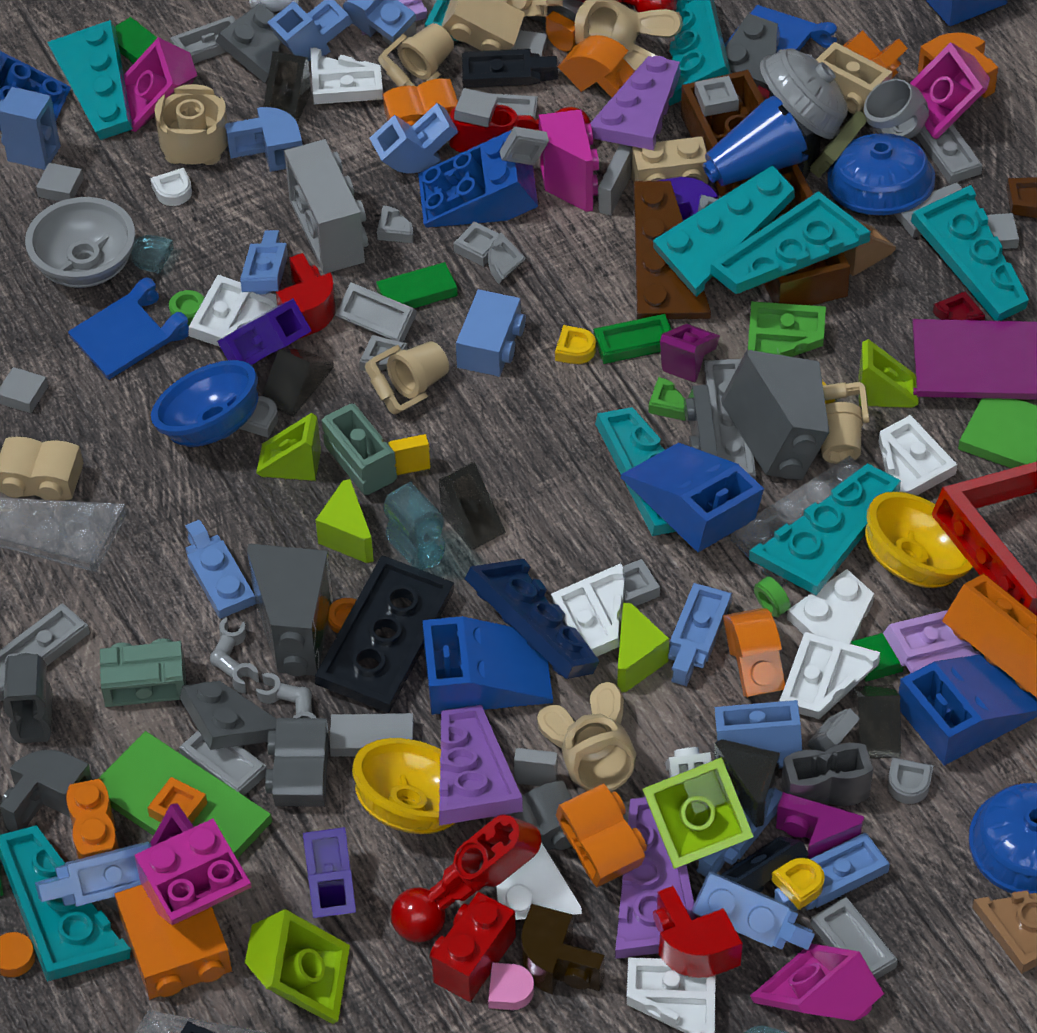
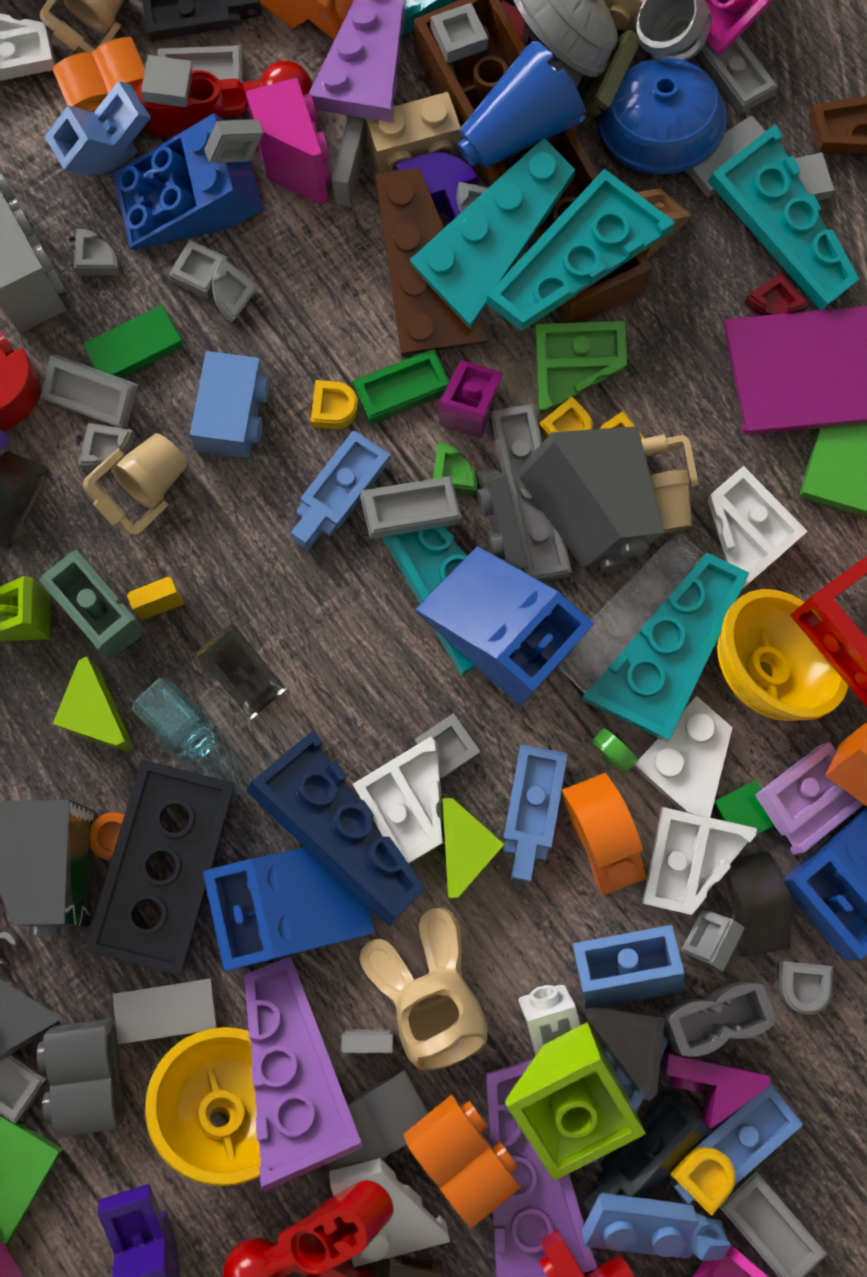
camera: 10 degrees left, 25 degrees up
(299, 695) = (76, 970): light grey arm -> none
(570, 399) = (338, 488): none -> medium blue hinge
(628, 411) = (410, 507): none -> light grey tile
(885, 379) = (706, 415): lime slope -> none

